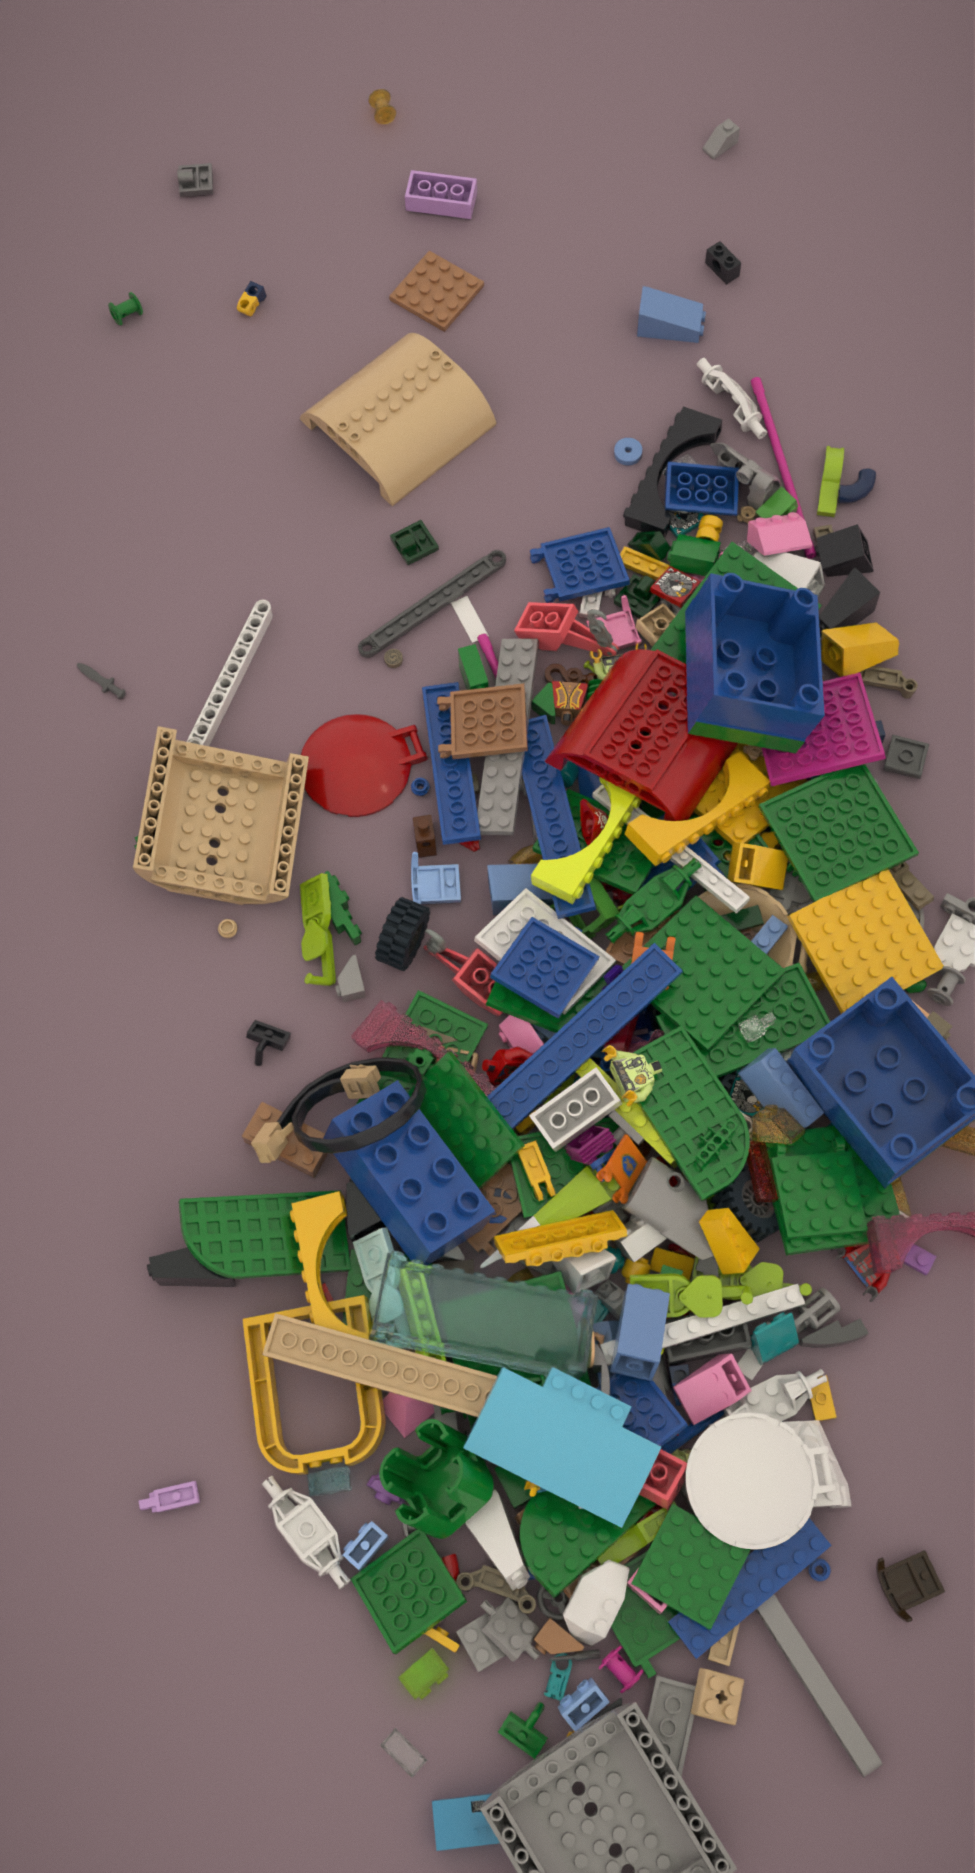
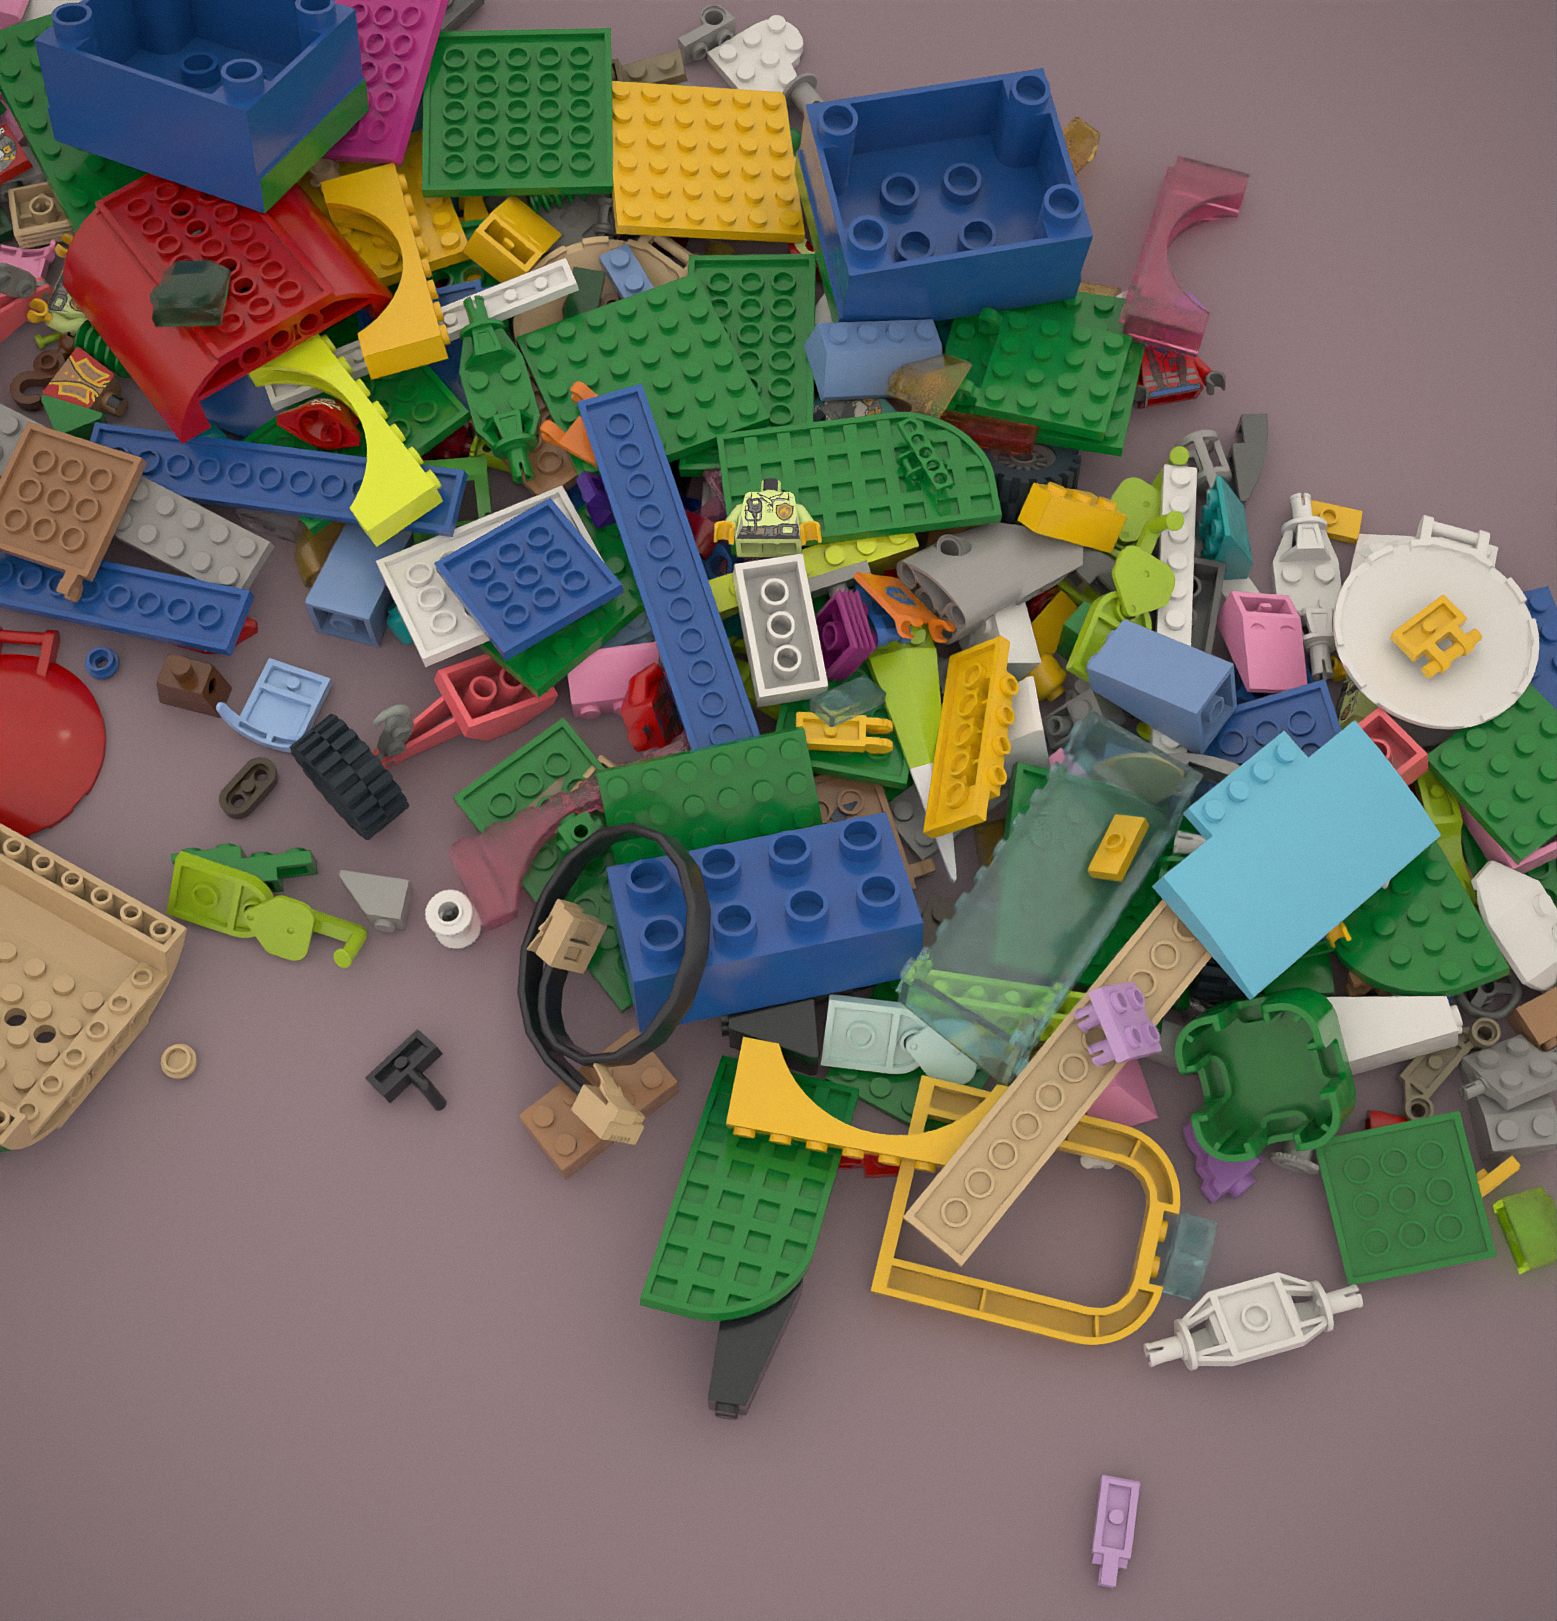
camera: 70 degrees left, 0 degrees up
(350, 1022) = (450, 906): none -> white hose
(365, 1546) = (1310, 1239): light blue brick -> none
(384, 887) = (247, 788): none -> dark brown plate
(417, 1381) = (1124, 1022): none -> lavender plate
(536, 1347) = (1118, 847): none -> yellow plate
(555, 1164) = (847, 701): none -> clear light blue plate
(616, 722) = (191, 294): none -> slope
(755, 1028) = (763, 347): clear plate -> none
(755, 1476) = (1430, 627): none -> yellow plate

